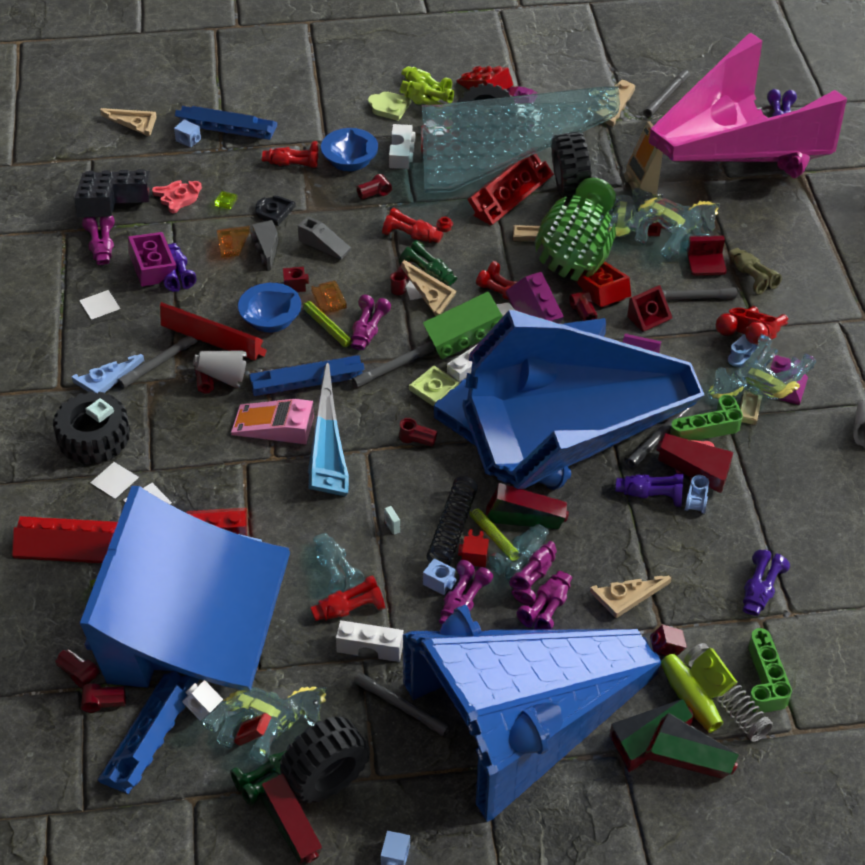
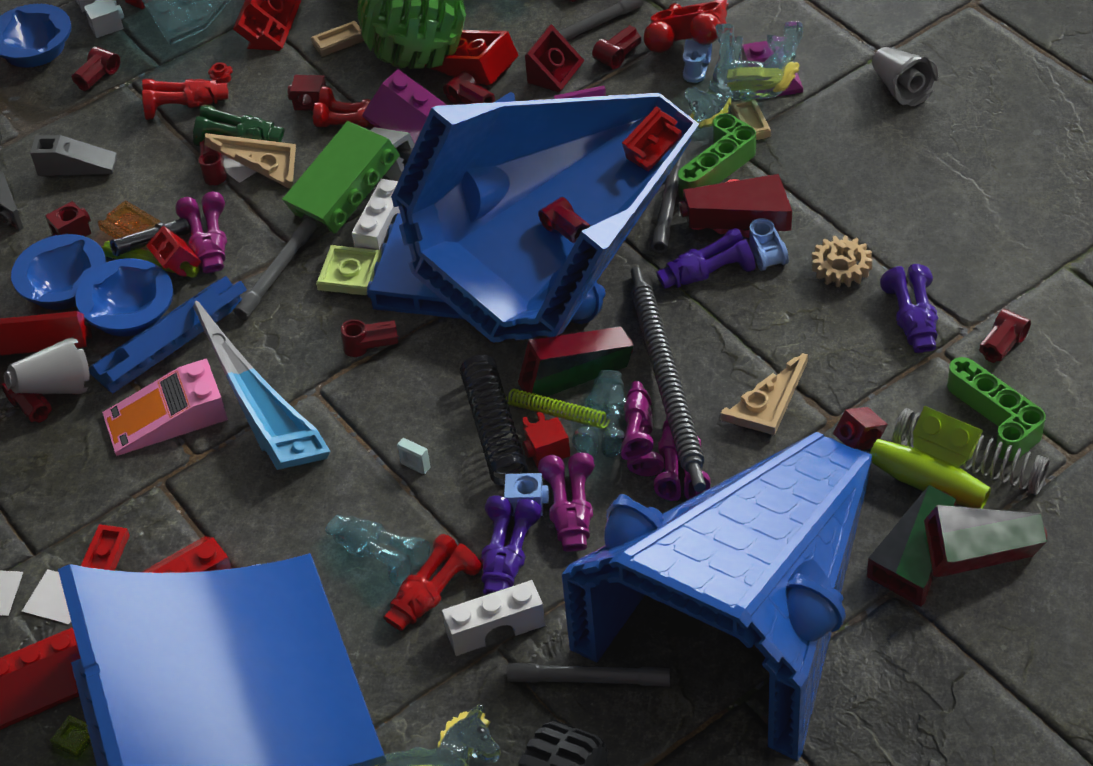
camera: 25 degrees left, 0 degrees up
(185, 489) = (106, 547): none -> red plate
(294, 339) = (124, 296): none -> blue piece
(331, 309) = (141, 239): none -> black pin
(339, 324) = (172, 251): none -> red hinge
(398, 608) = (500, 561): none -> dark purple piece
(484, 258) = (305, 91): none -> dark red brick
(571, 549) = (668, 380): none -> dark grey hose
(574, 415) = (561, 217): none -> dark red piece
(665, 391) = (651, 139): none -> red hinge
(693, 320) = (613, 51): none -> dark red piece
(738, 529) = (841, 261): none -> tan gear
(812, 627) = (1005, 333): none -> dark red piece

